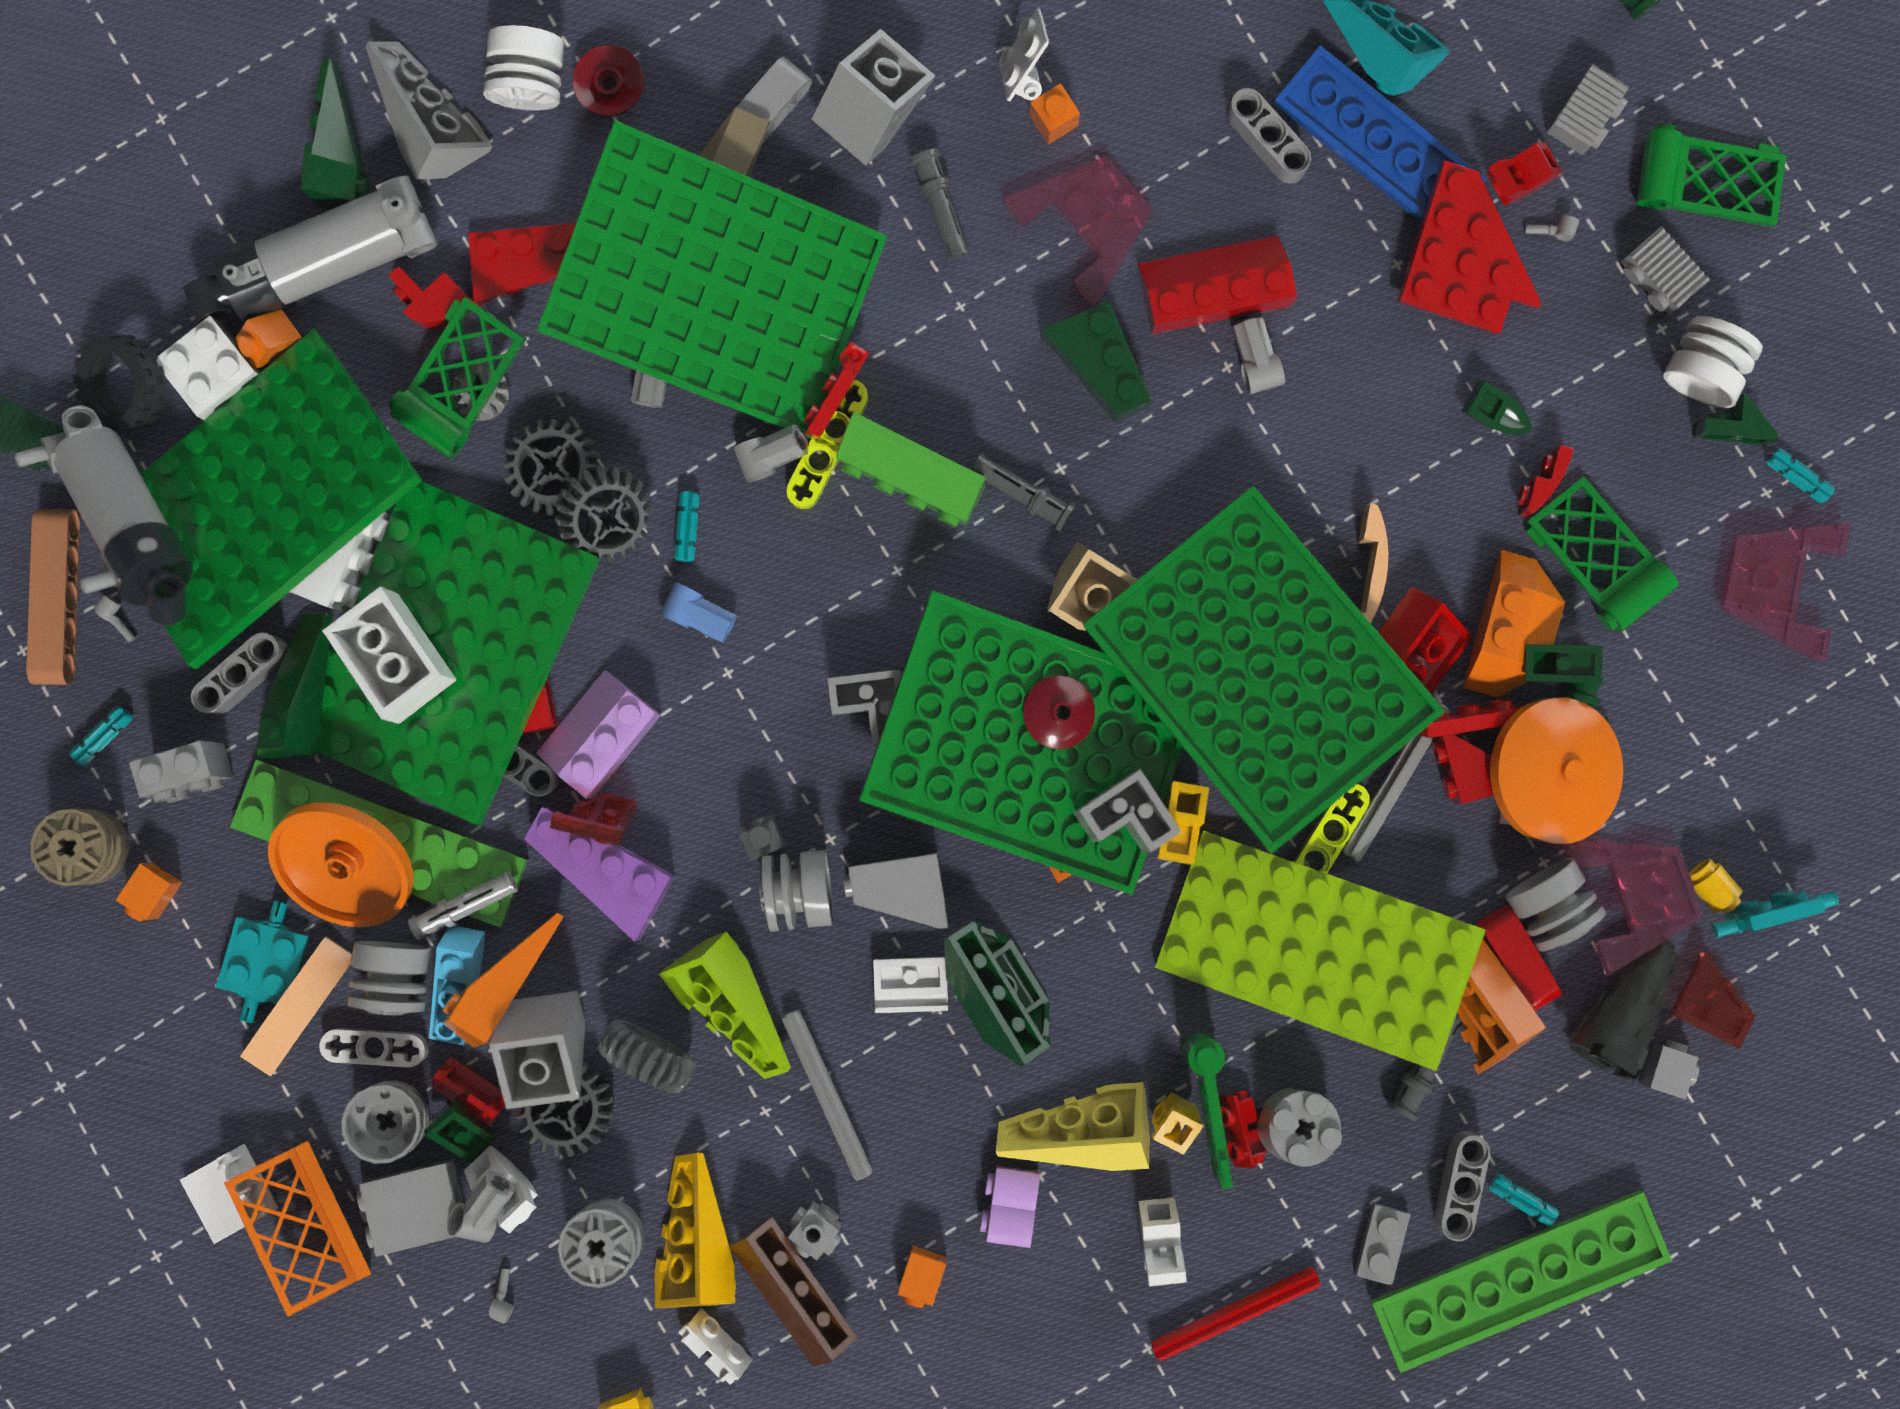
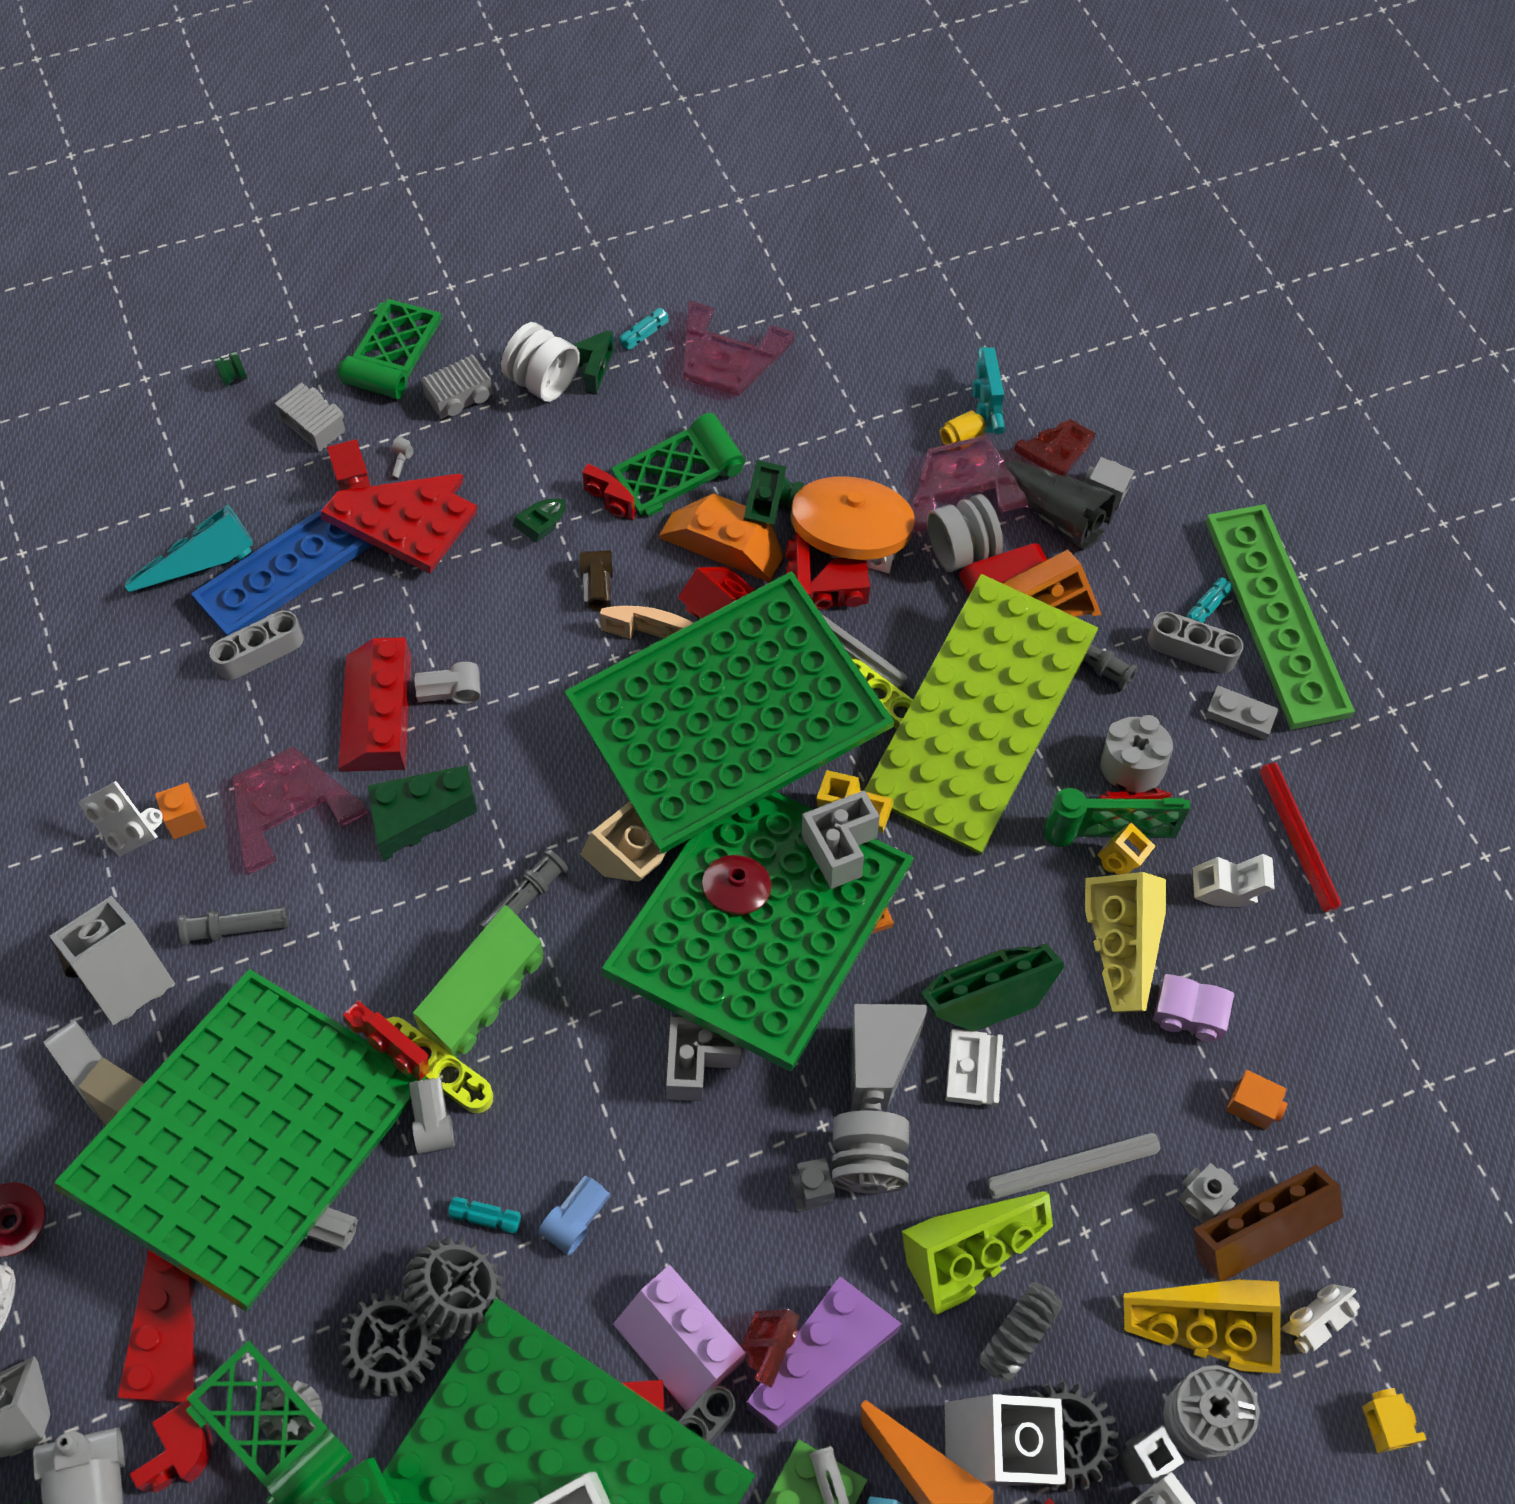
camera: 90 degrees left, 25 degrees down
(558, 1181) = (1149, 1457): none -> dark grey brick
(1434, 488) = (596, 574): none -> dark brown piece

